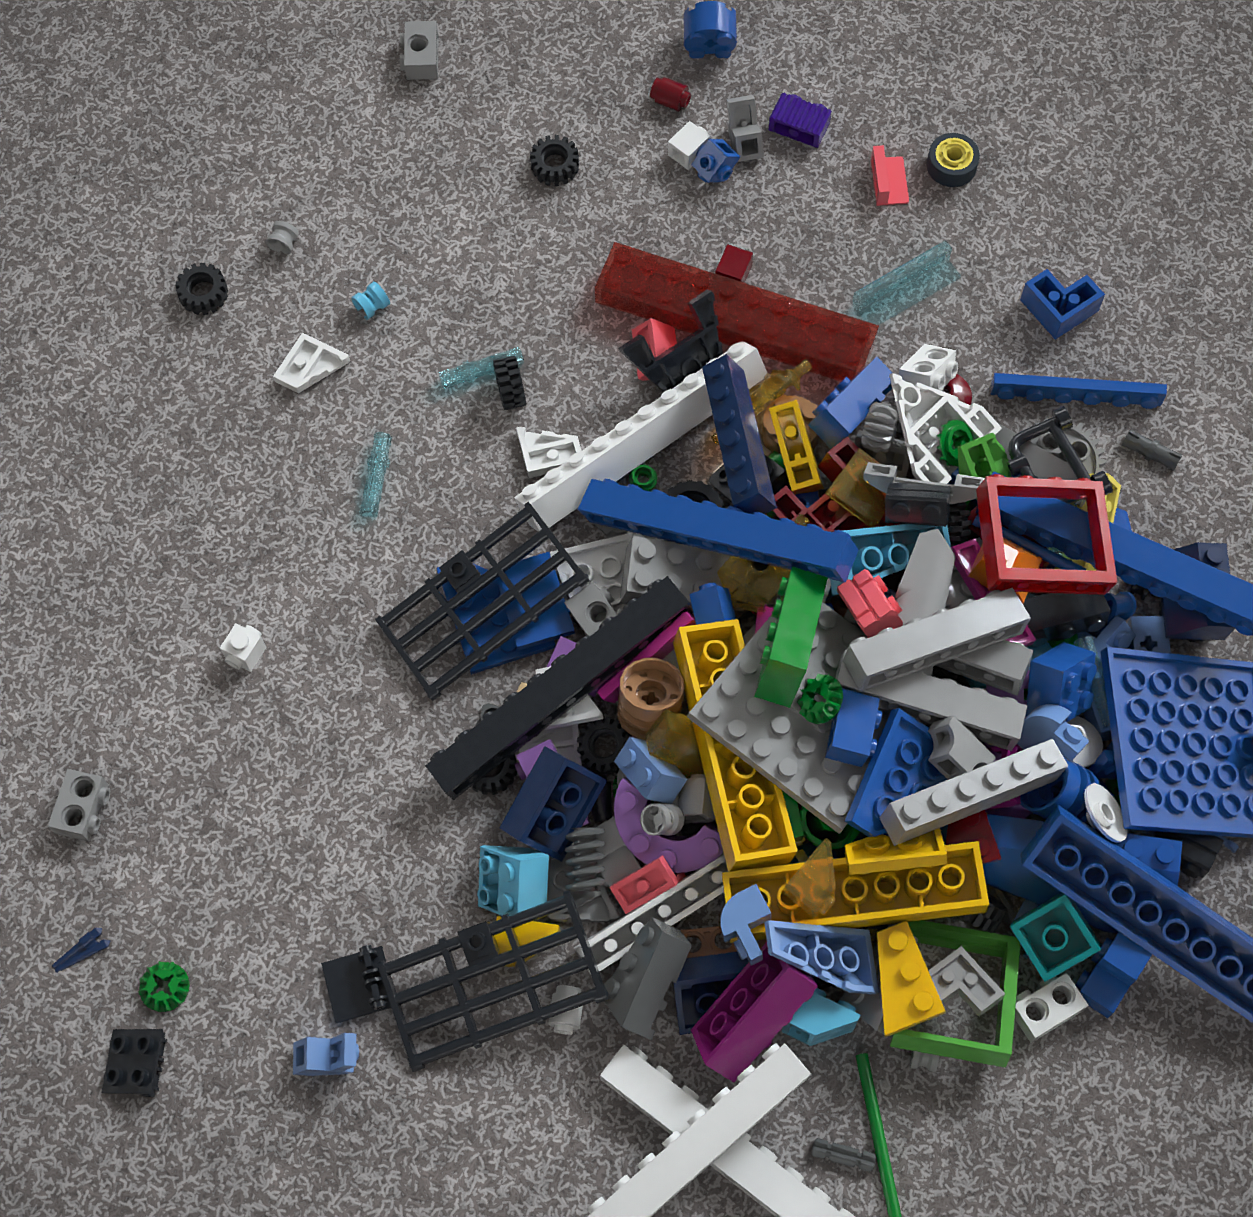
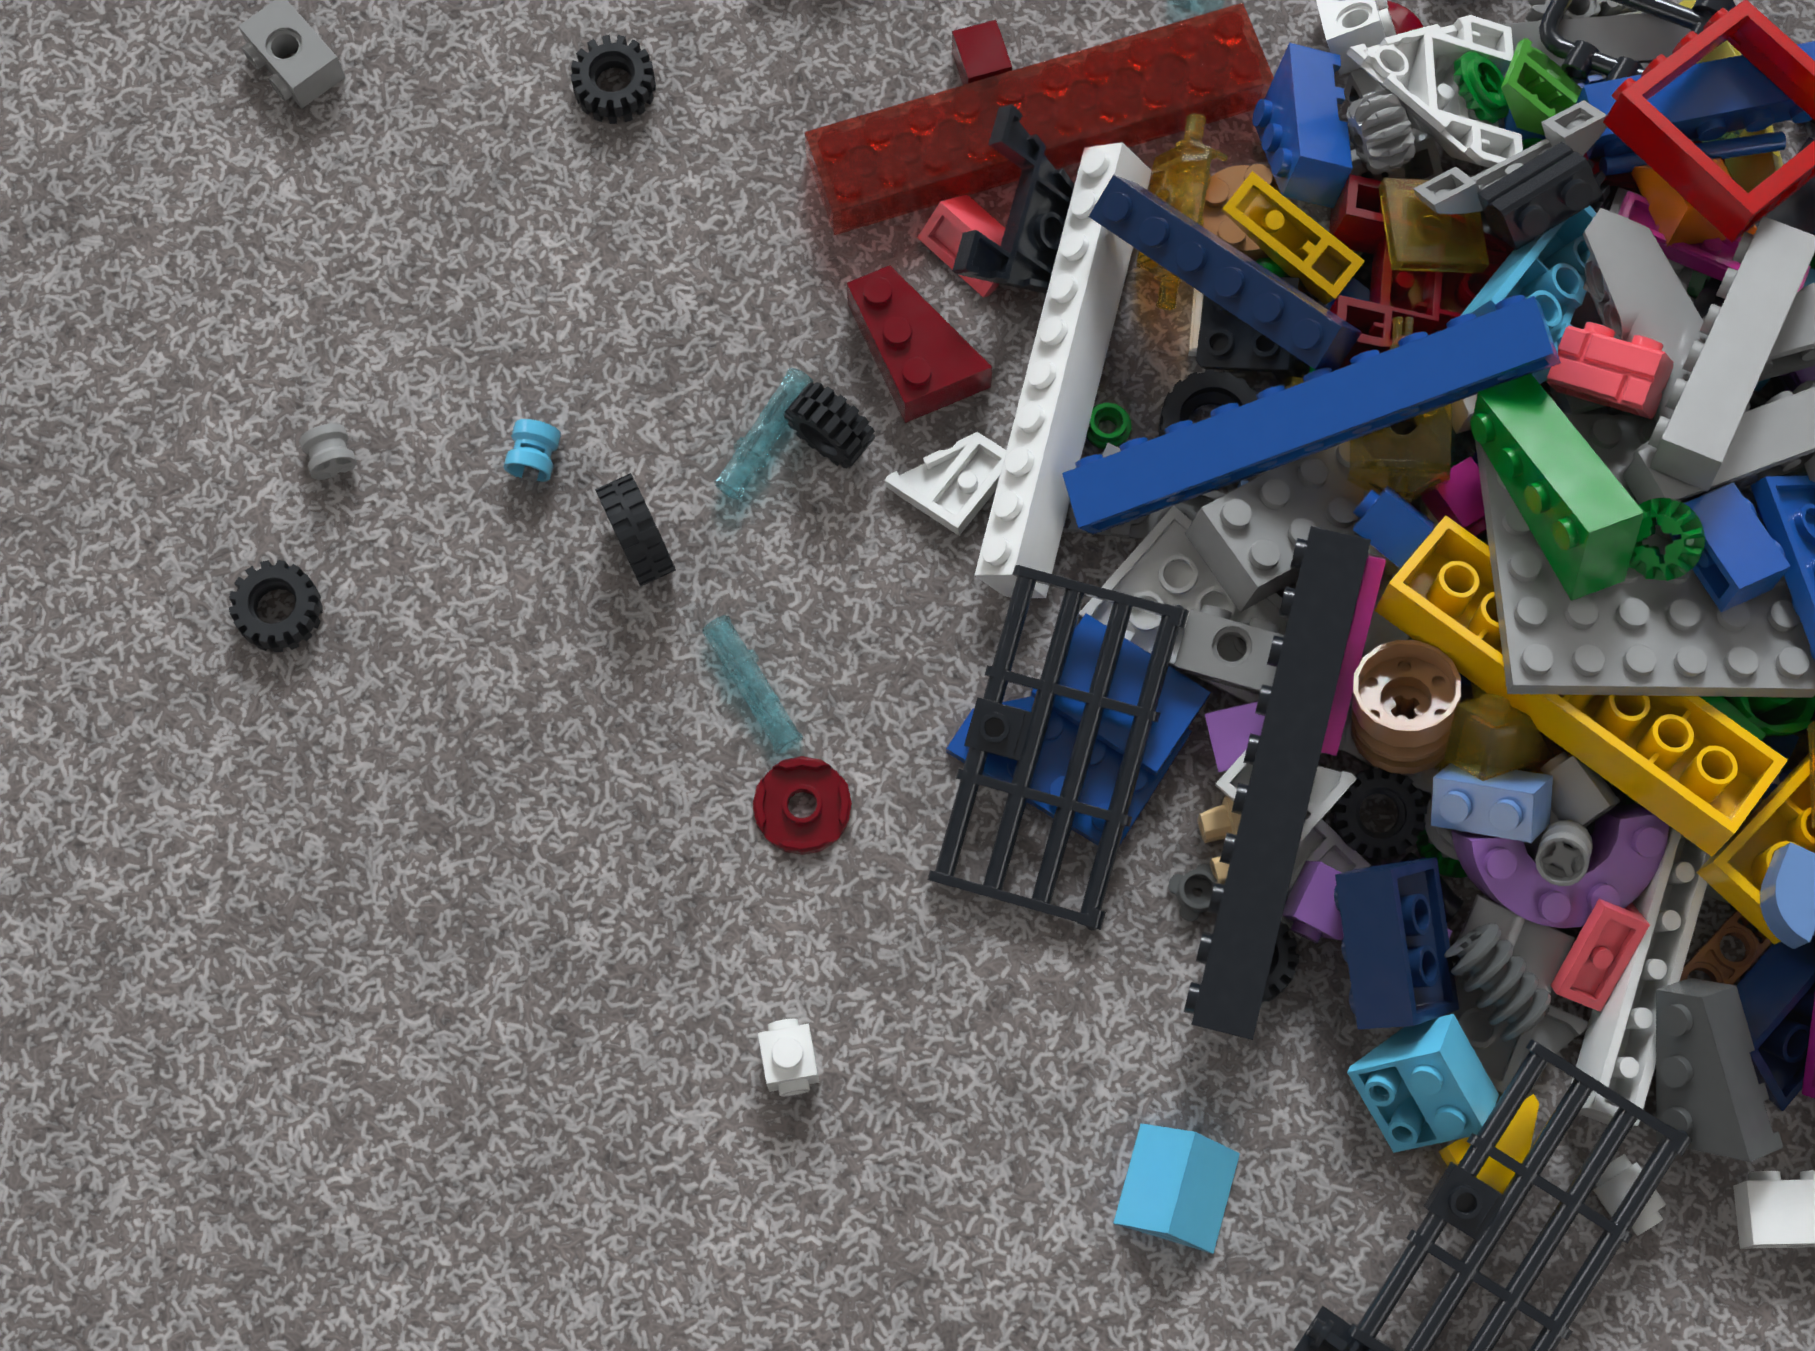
camera: 40 degrees left, 5 degrees up
(309, 363) = (523, 600): white wing -> none
(354, 560) = (808, 833): none -> dark red tile
(365, 842) = (1177, 1186): none -> medium azure slope
(379, 365) = (635, 529): none -> black tyre
(579, 379) = (914, 346): none -> dark red wedge

